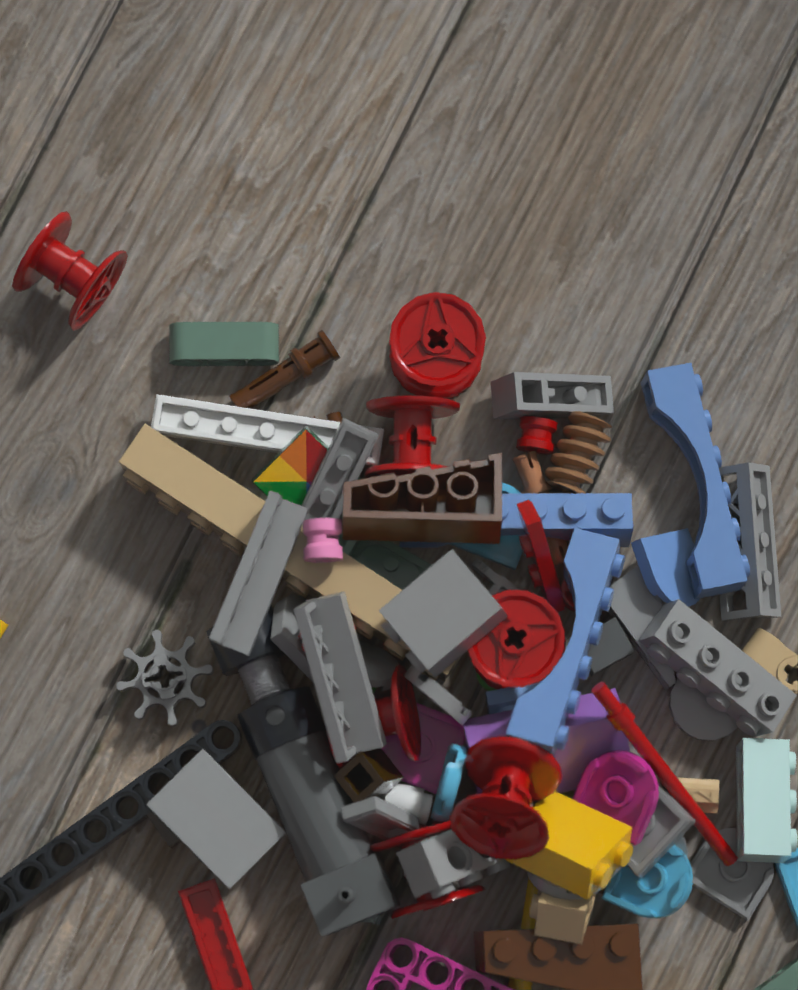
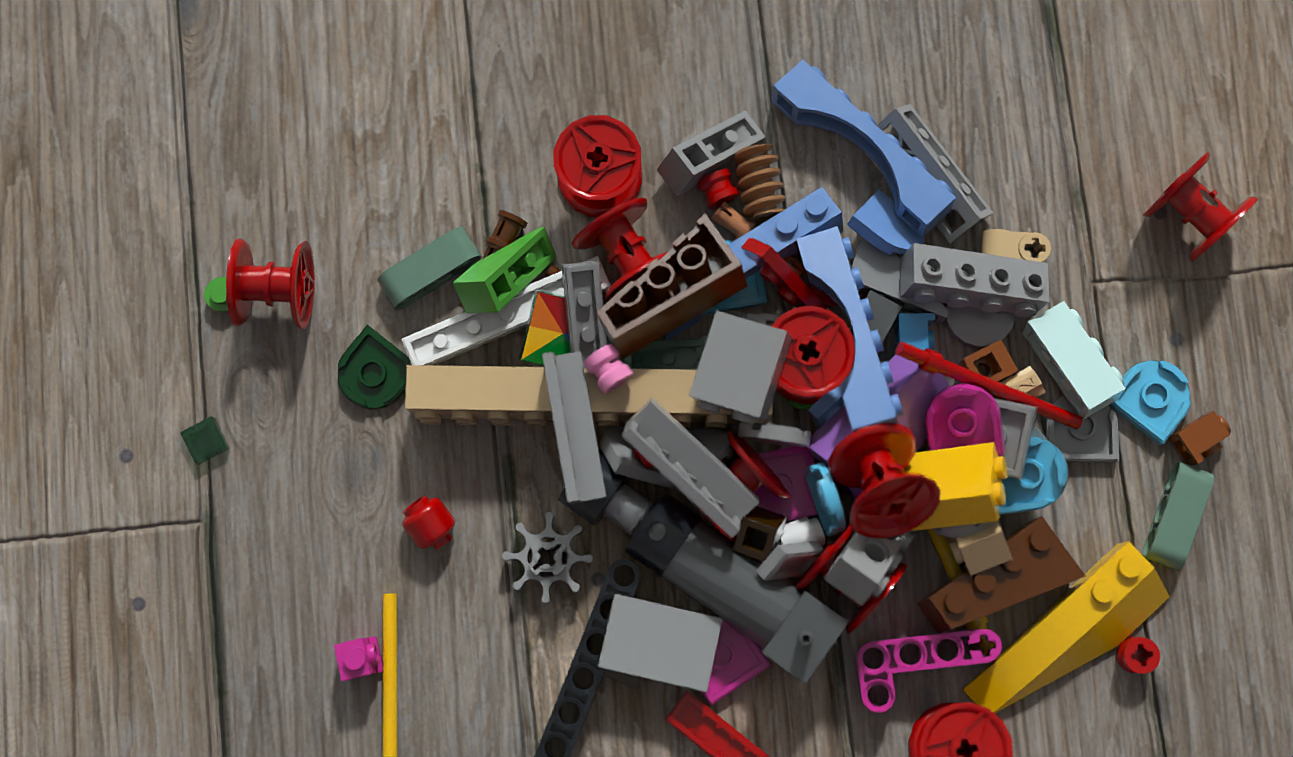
camera: 25 degrees left, 0 degrees up
(15, 247) = (216, 294): none -> bright green plate
(77, 578) = (428, 523): none -> red head
(113, 406) = (372, 371): none -> dark green tile
(271, 880) = (734, 663): none -> dark pink tile
(288, 392) = (502, 275): none -> bright green slope
(631, 682) = (913, 330): none -> dark azure brick
(692, 751) = (994, 358): none -> dark orange brick

